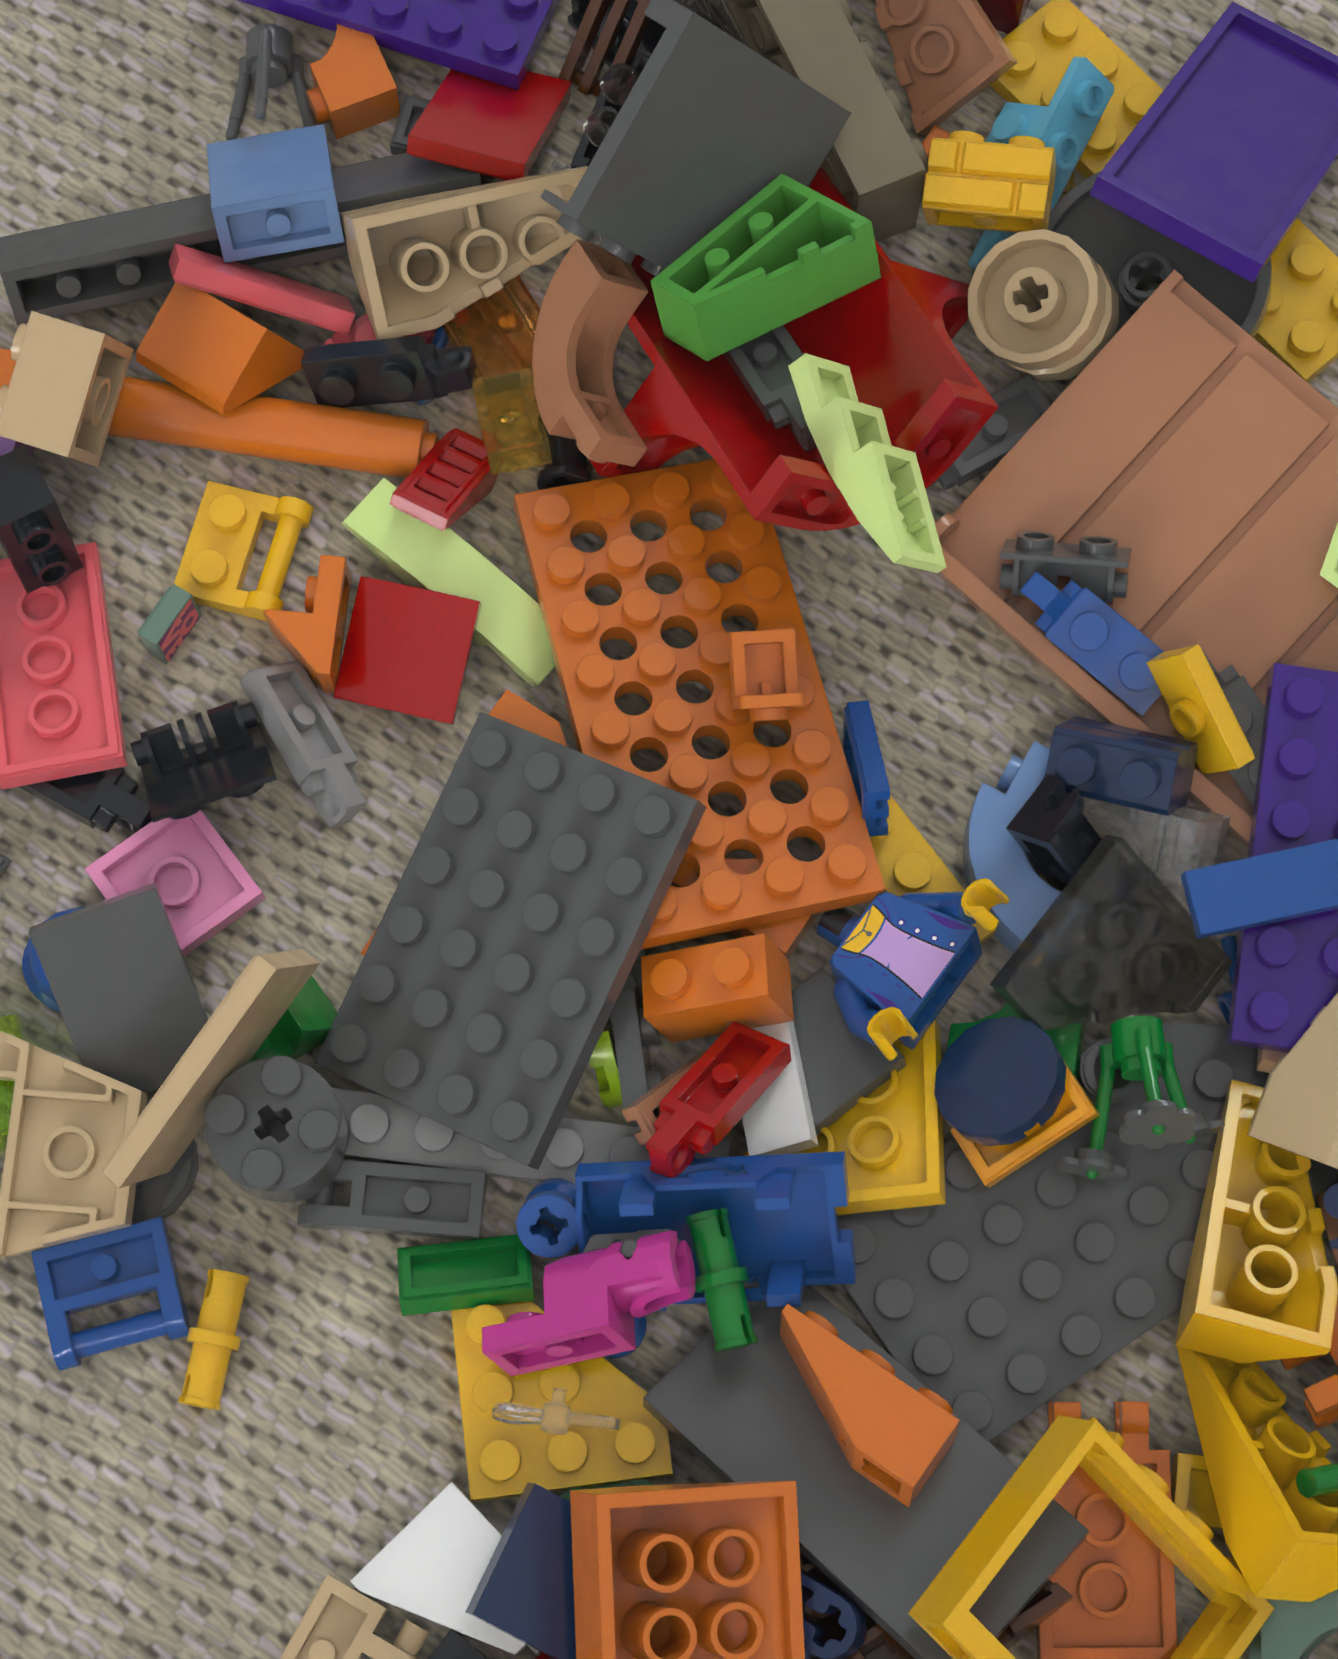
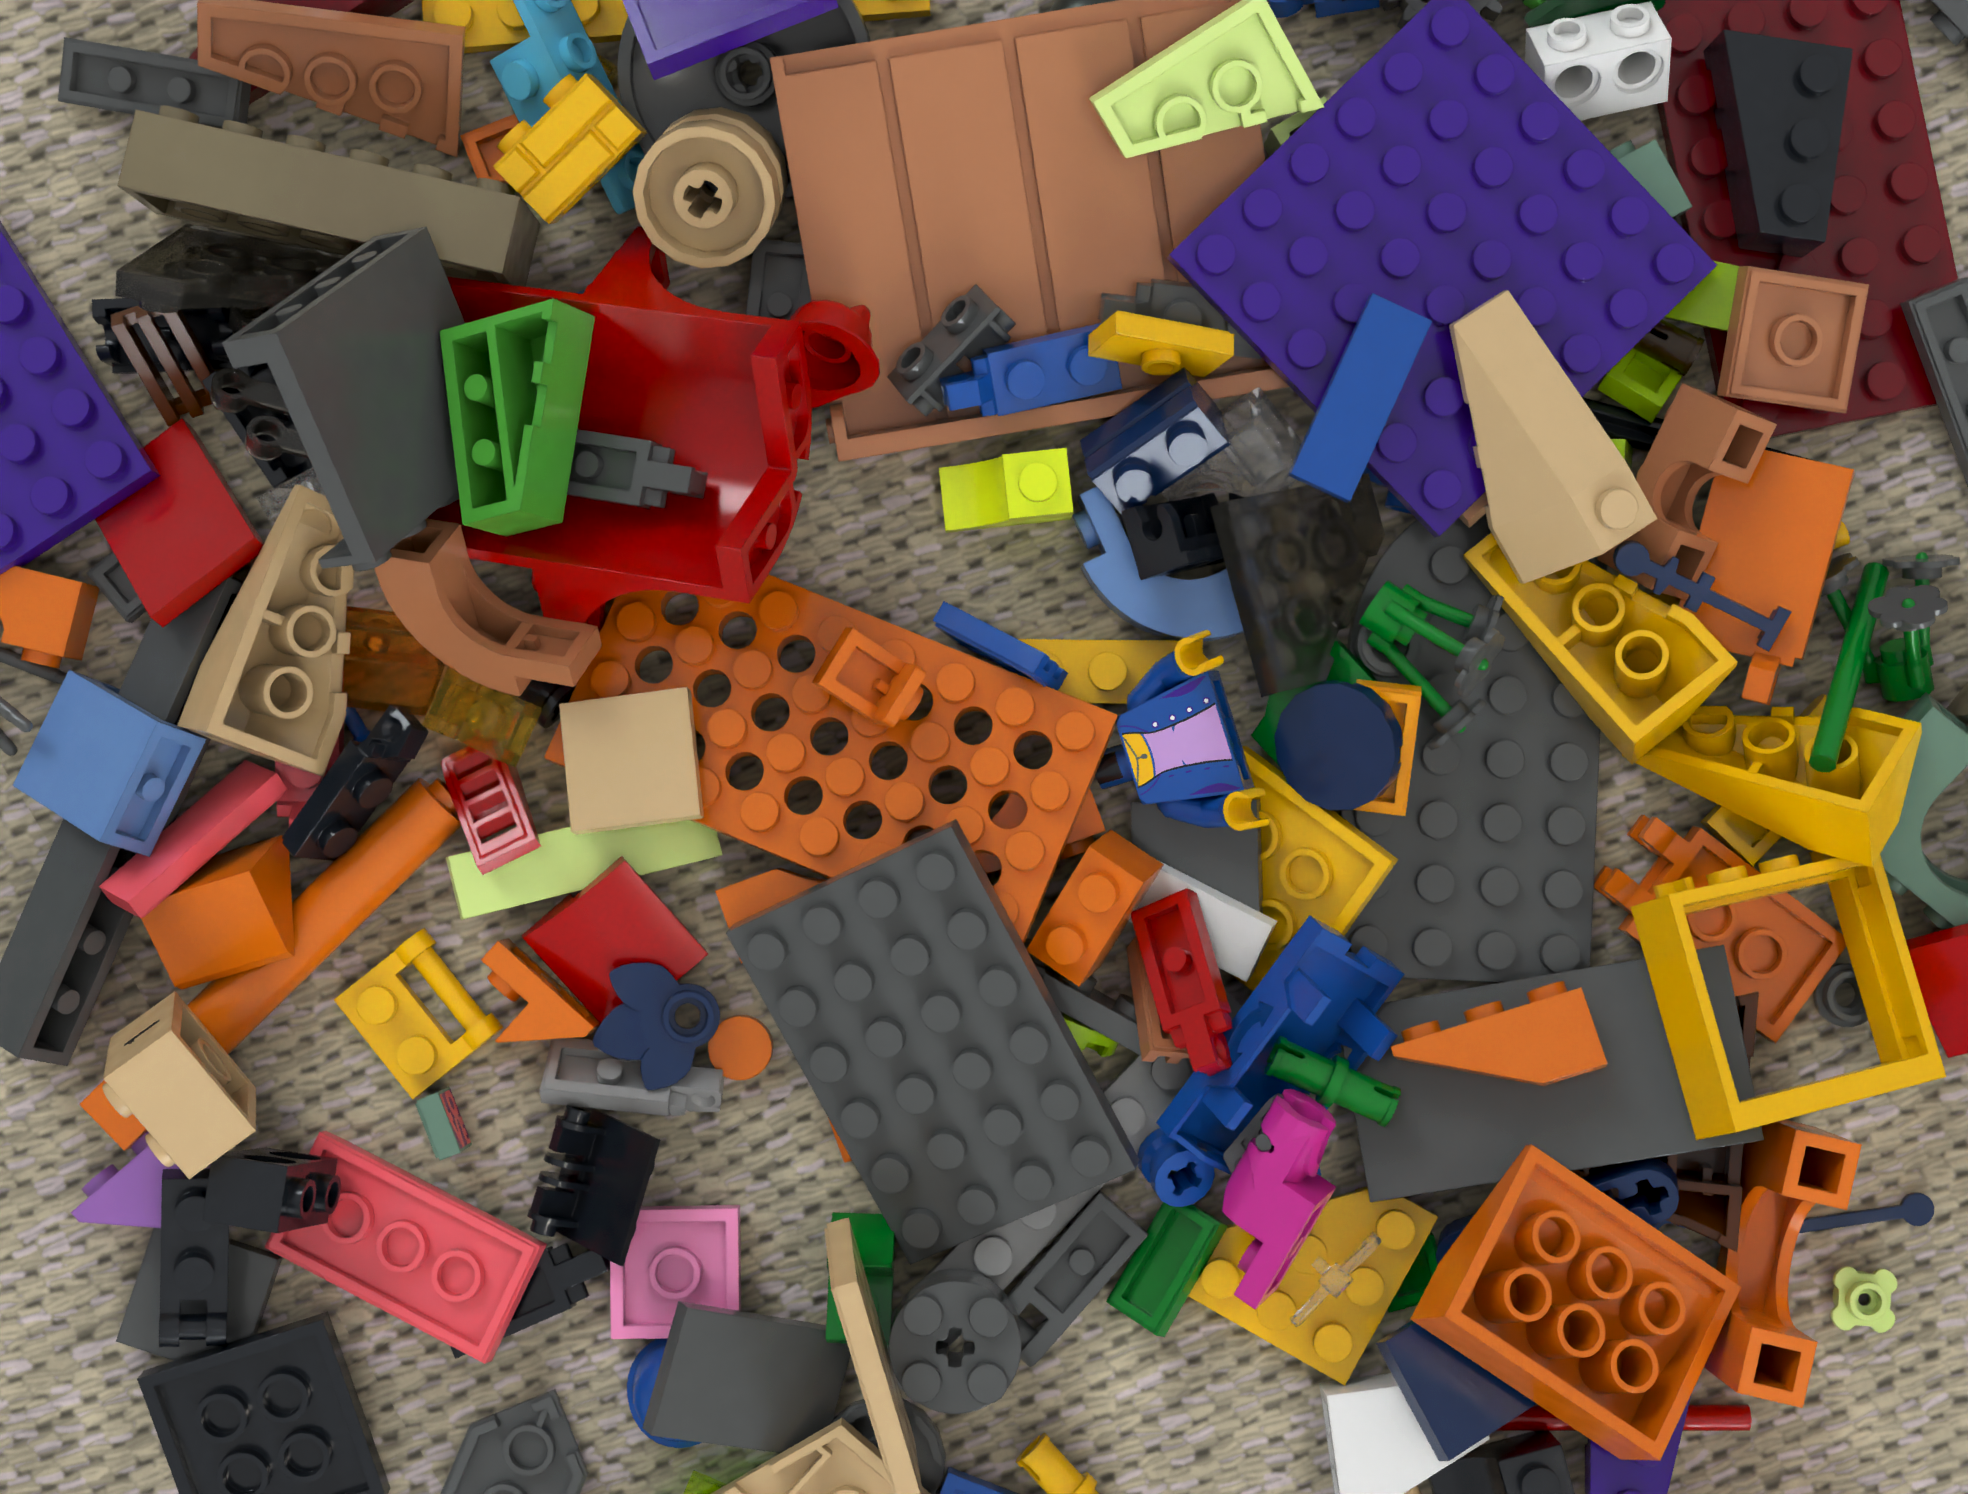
camera: 55 degrees left, 15 degrees up
(362, 715) = (646, 1023): none -> dark blue plate
(394, 808) = (741, 1047): none -> orange tile
(561, 550) = (631, 760): none -> tan tile
(872, 475) = (784, 476): yellowish green slope -> none
(991, 472) = (837, 349): none -> red piece
(993, 695) = (1007, 491): none -> neon yellow arch

